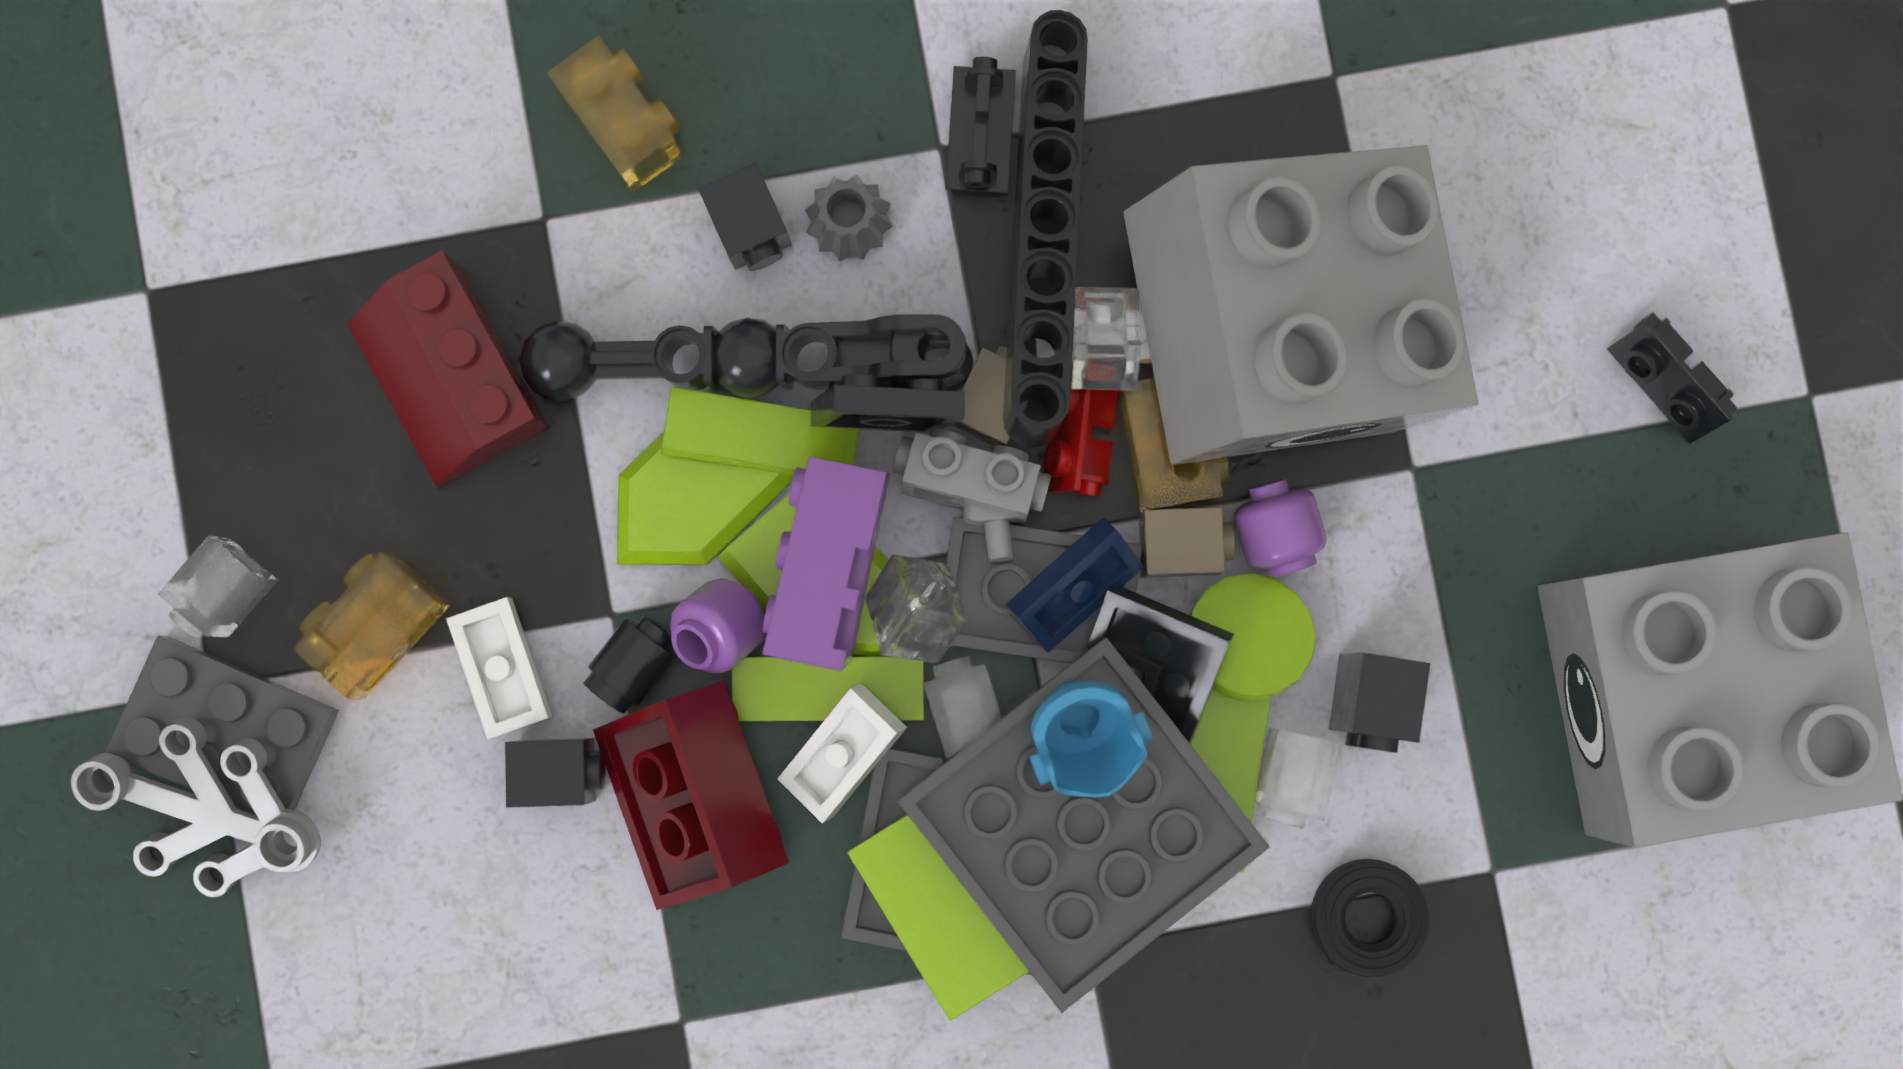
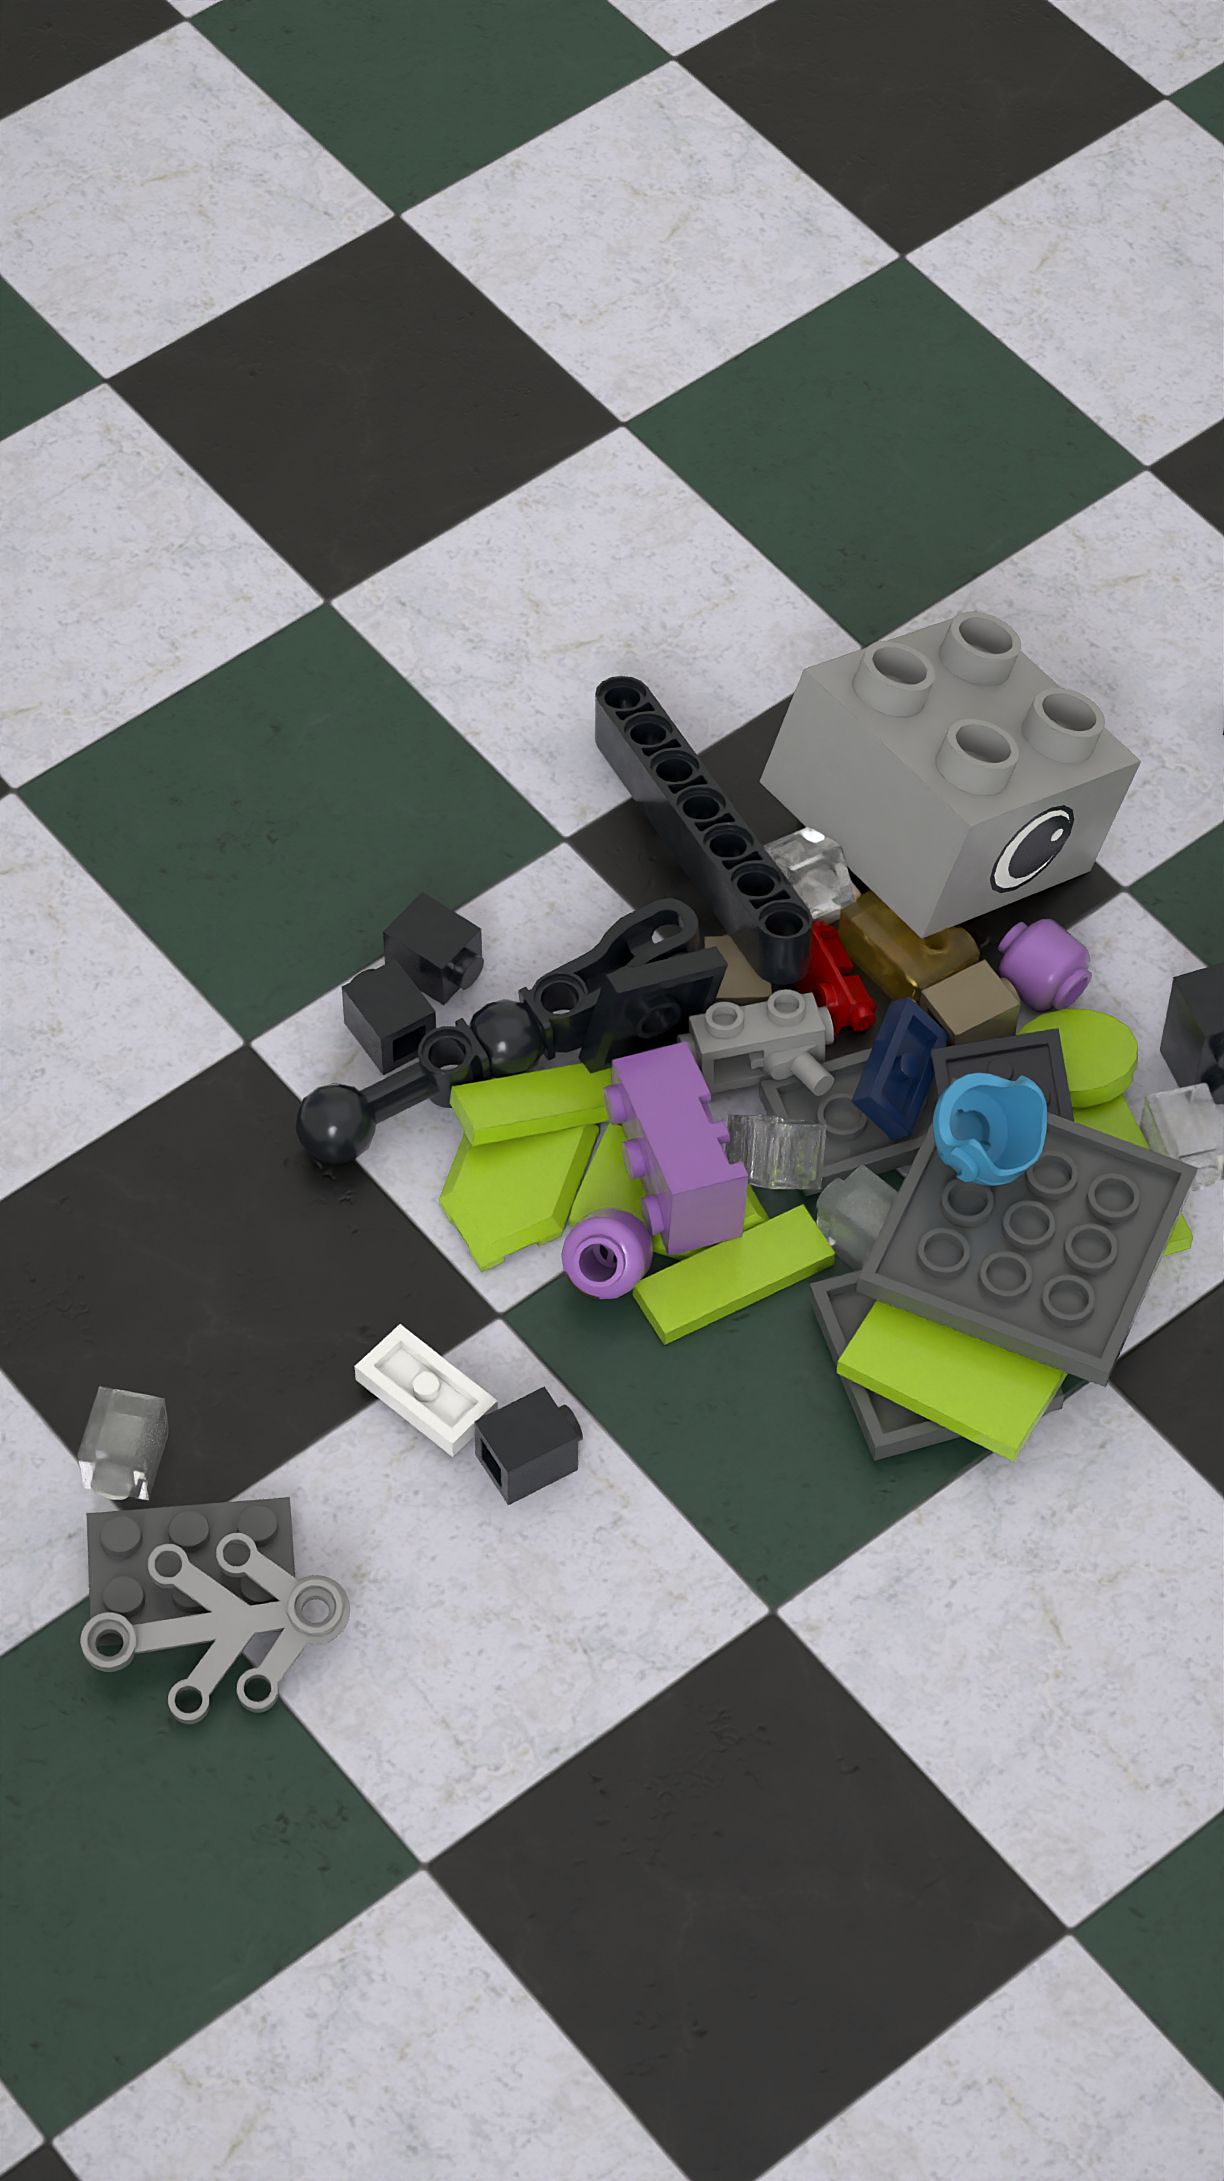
camera: 30 degrees left, 30 degrees down
(369, 624) = (286, 1407): clear yellow brick -> none
(445, 369) = (234, 1179): dark red slope -> none
(616, 114) = (272, 921): clear yellow brick -> none
(630, 663) = (545, 1327): black brick -> none
(667, 267) = (387, 1015): none -> black brick
(691, 796) = (666, 1405): dark red slope -> none
(842, 752) = (781, 1301): white plate -> none
(848, 218) = (521, 910): dark grey piece -> none
(980, 127) = (592, 801): black hinge -> none

